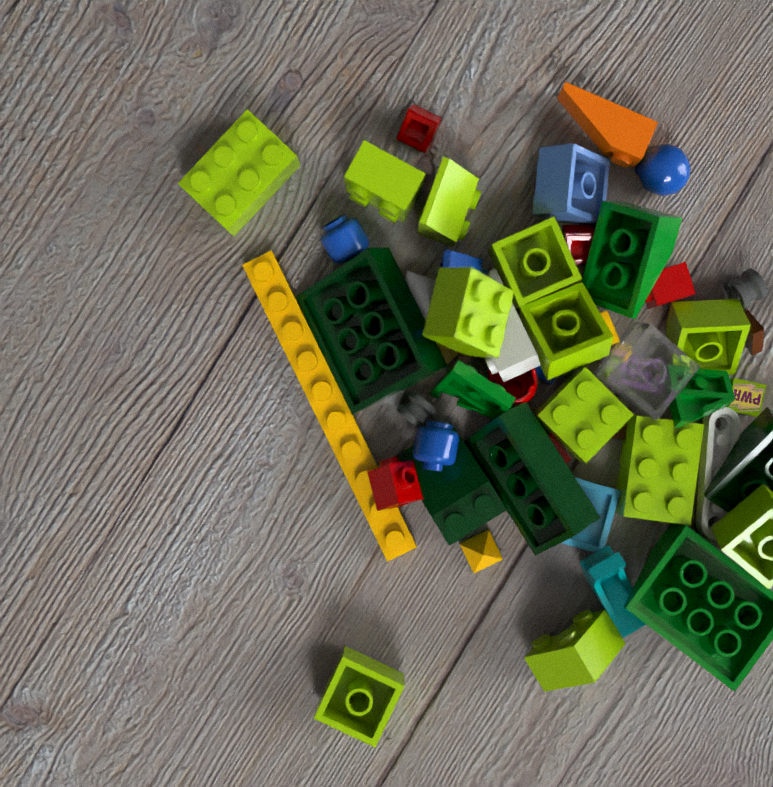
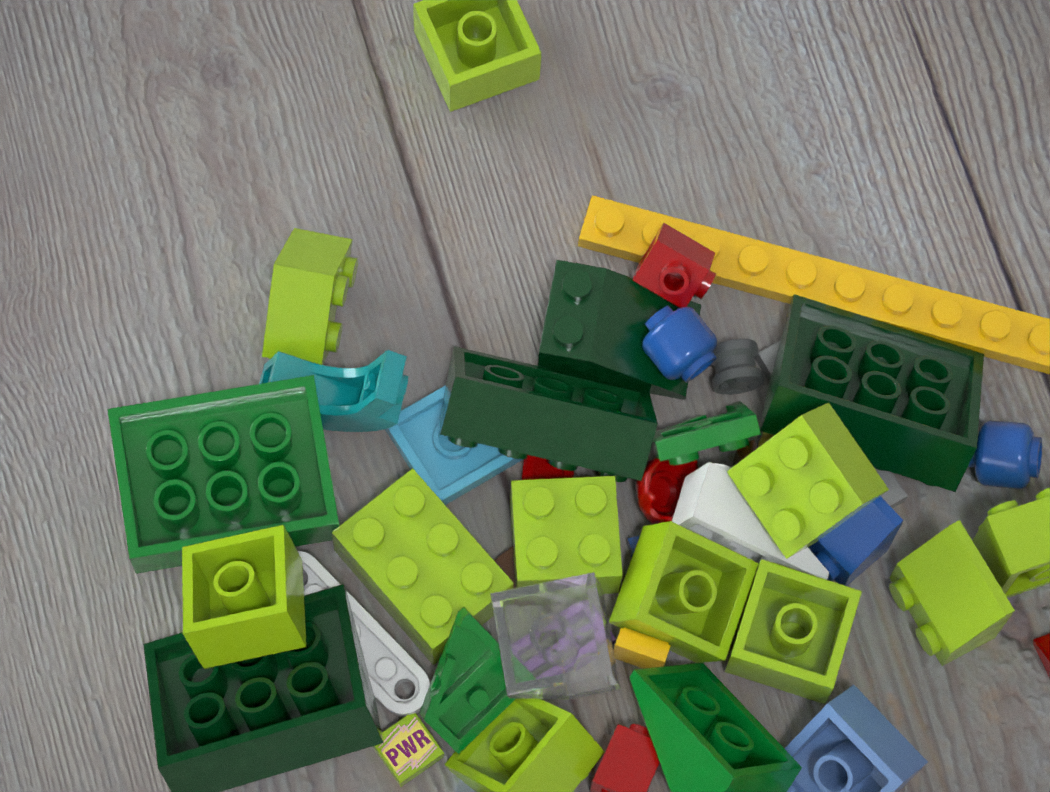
camera: 130 degrees right, 20 degrees down
(481, 551) = (507, 305): yellow slope -> none
(579, 241) = (775, 712): red slope -> none

